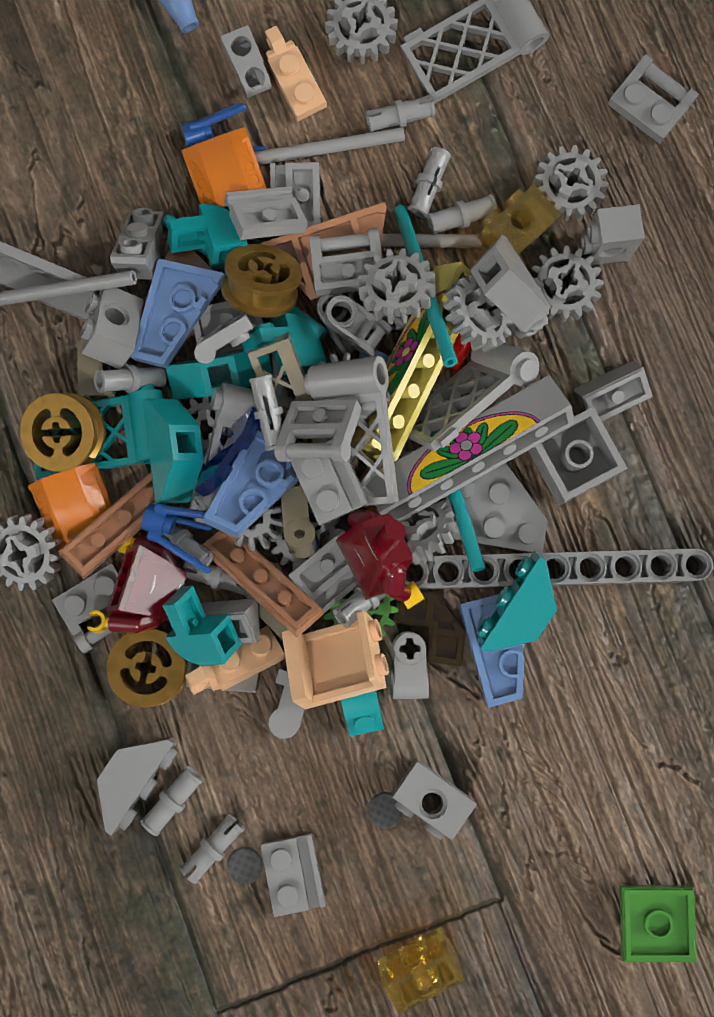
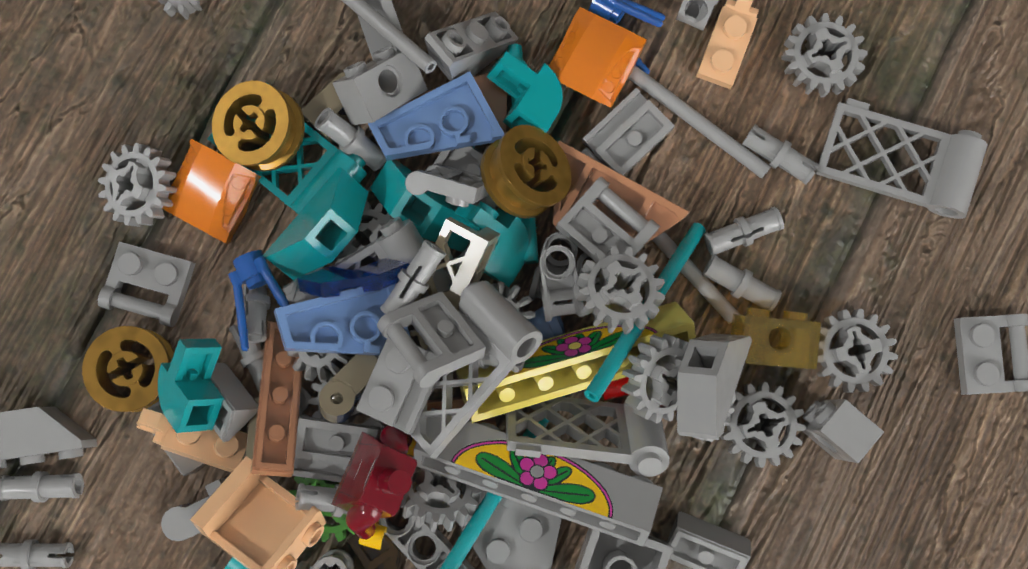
camera: 50 degrees right, 0 degrees up
(110, 529) = (211, 236): nougat tile -> none
(143, 585) = (188, 307): dark red torso -> none
(265, 213) = (586, 123): light grey plate -> none

